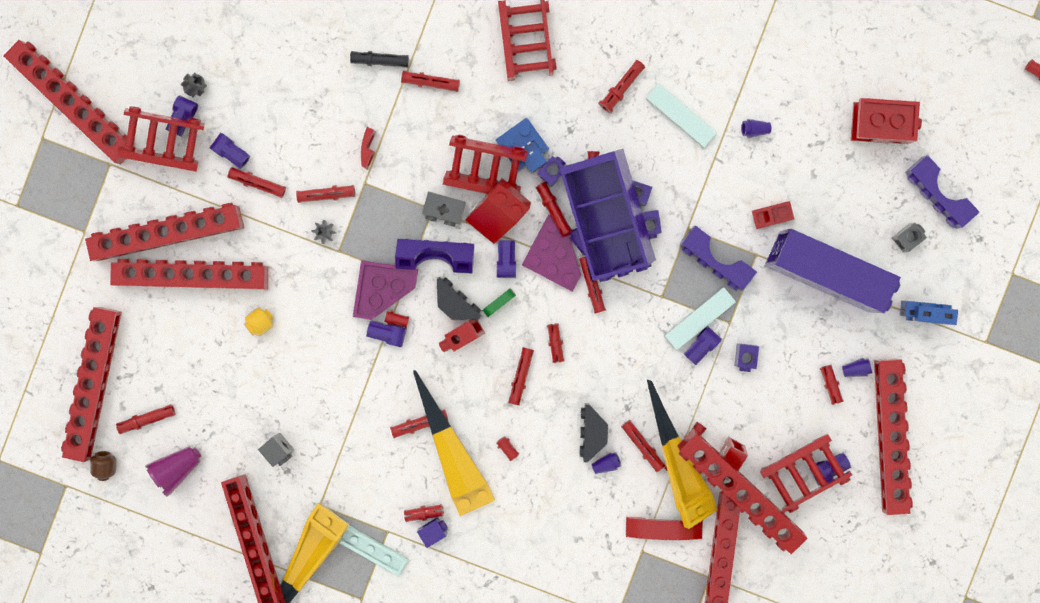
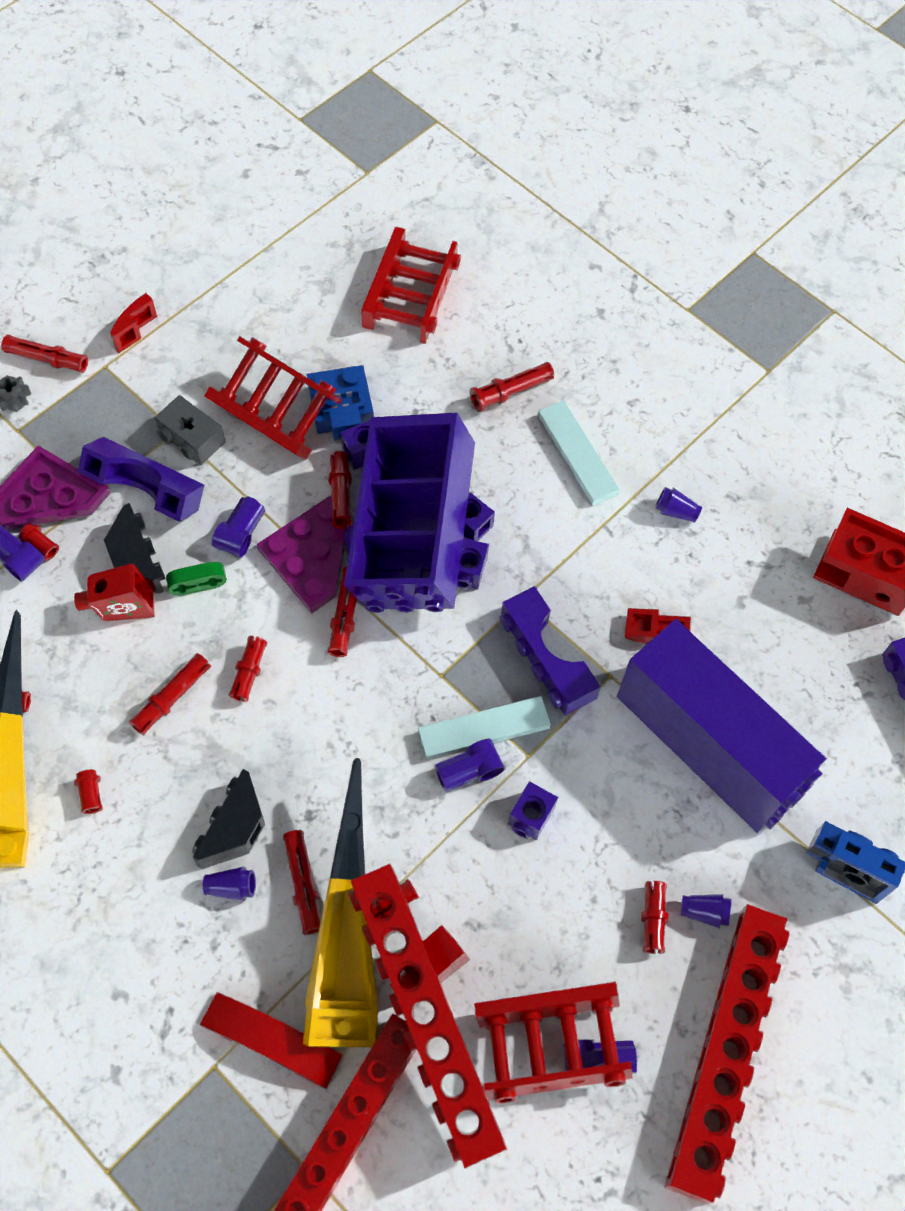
camera: 15 degrees right, 25 degrees down
(379, 59) = (201, 234): black pin -> none
(430, 81) = (253, 280): red pin -> none
(498, 211) = (260, 454): red slope -> none
(902, 240) = (851, 750): dark grey brick -> none

